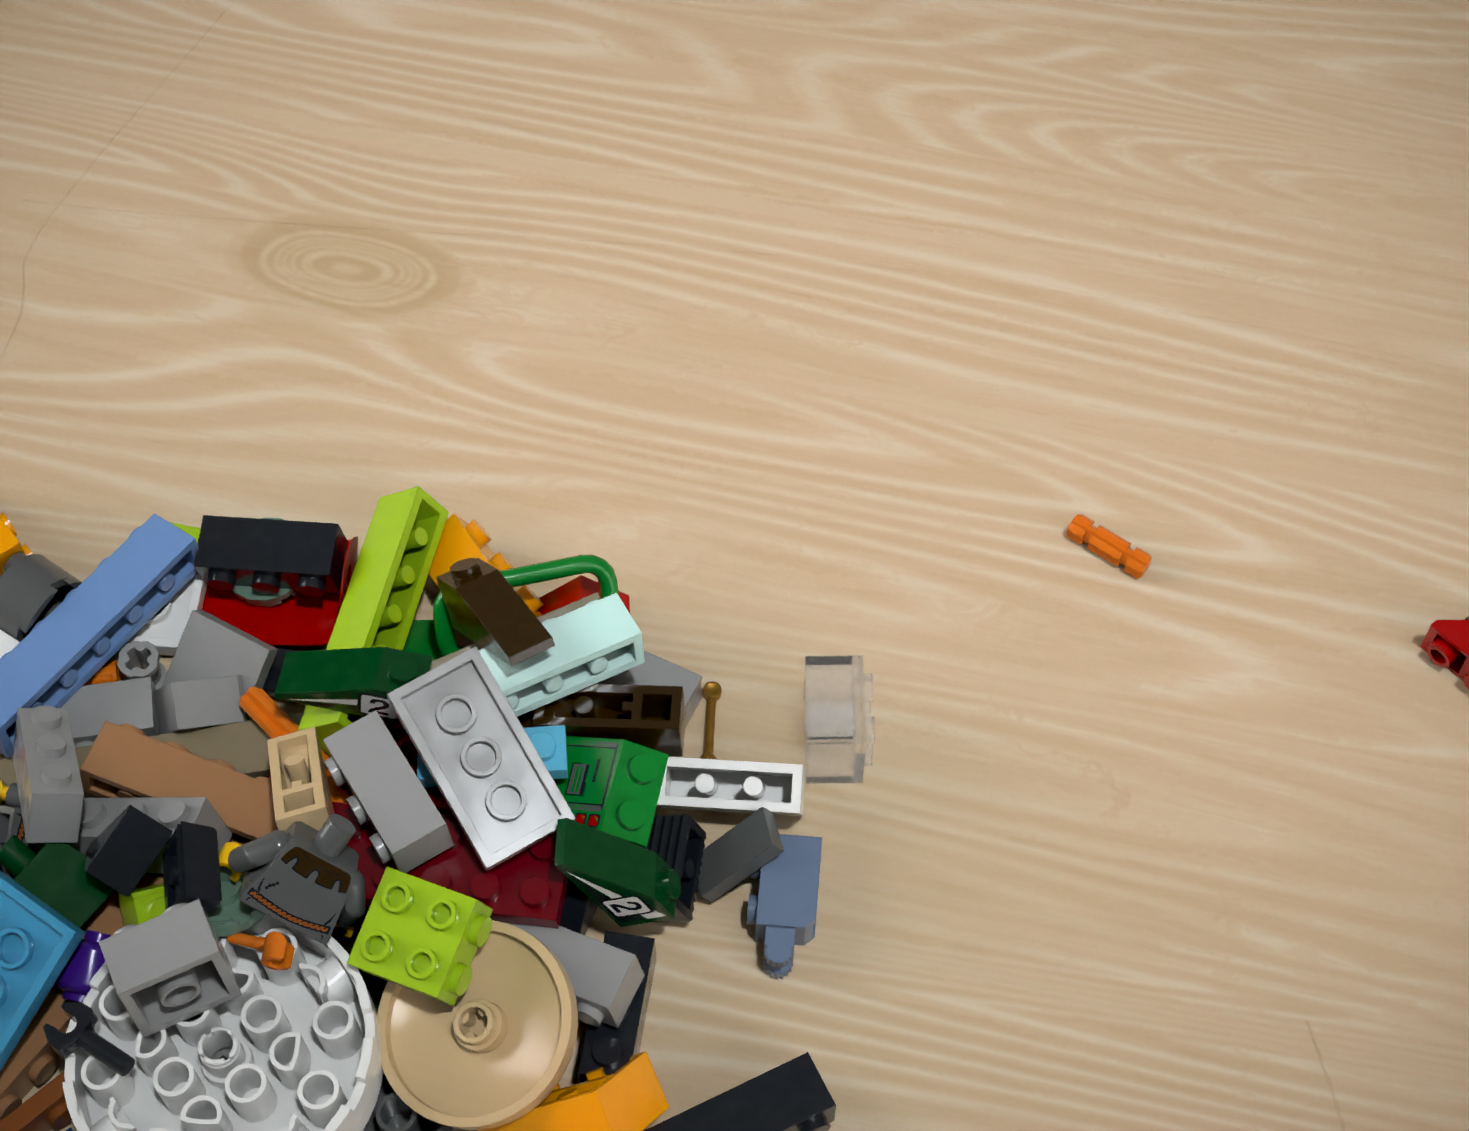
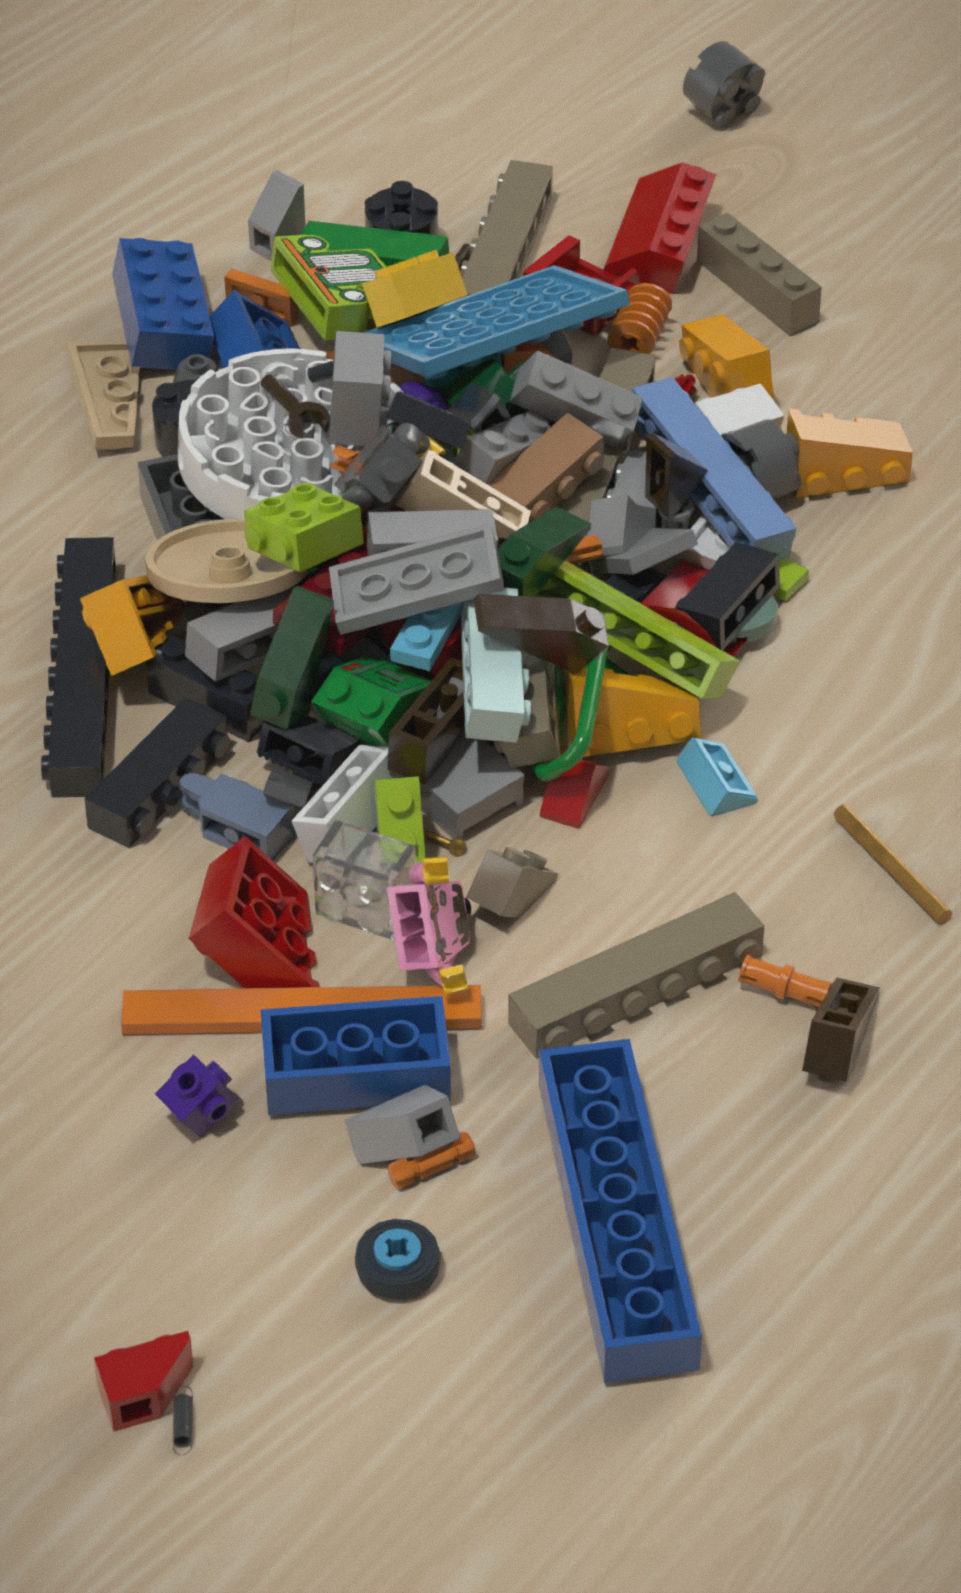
camera: 115 degrees right, 15 degrees down
(125, 647) = (670, 474): none -> dark brown slope
(207, 1043) = (298, 412): none -> dark brown piece
(511, 502) = (715, 776): none -> medium azure slope
(554, 326) = (893, 864): none -> pearl gold bar
(744, 718) = (400, 811): none -> lime brick
(752, 608) = (510, 881): none -> dark tan slope
(753, 351) = (783, 981): none -> orange pin
(764, 1007) = (149, 776): none -> black brick
(788, 287) = (839, 1030): none -> dark brown slope
(812, 463) = (635, 974): none -> dark tan brick
(868, 632) = (431, 923): none -> bright pink torso
(925, 812) = (254, 921): none -> red wedge
(1000, 736) = (239, 1009): none -> orange tile
(1047, 639) = (353, 1053): none -> blue brick
(1090, 370) = (619, 1212): none -> blue brick
(1099, 563) = (403, 1127): none -> light grey slope
(1168, 752) = (198, 1094): none -> dark purple brick
(1217, 523) = (413, 1262): none -> black wheel

